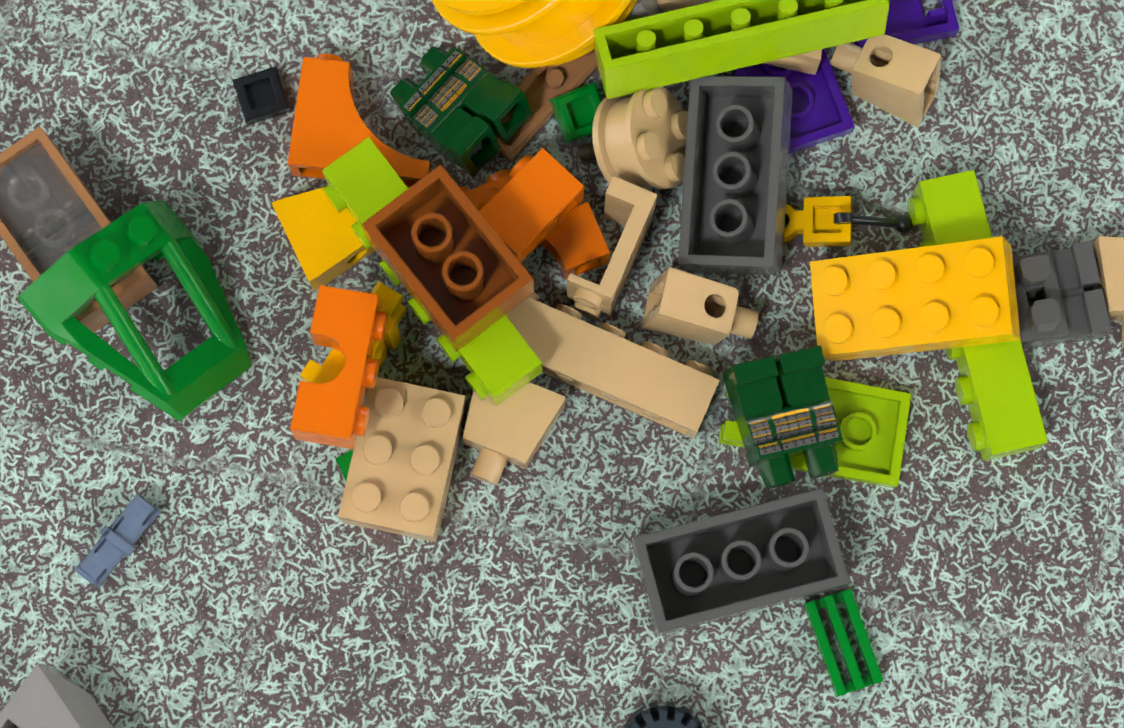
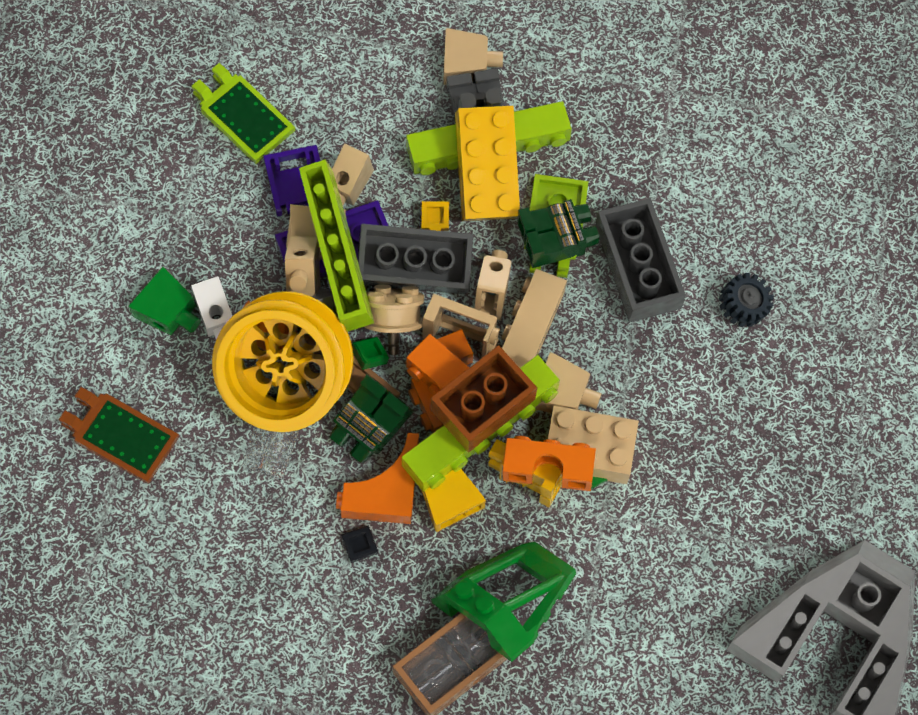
camera: 95 degrees left, 10 degrees down
(117, 541) = (647, 614): sand blue pin -> none
(857, 682) = (702, 213): green tile -> none
(902, 223) = (433, 178): black hinge -> none

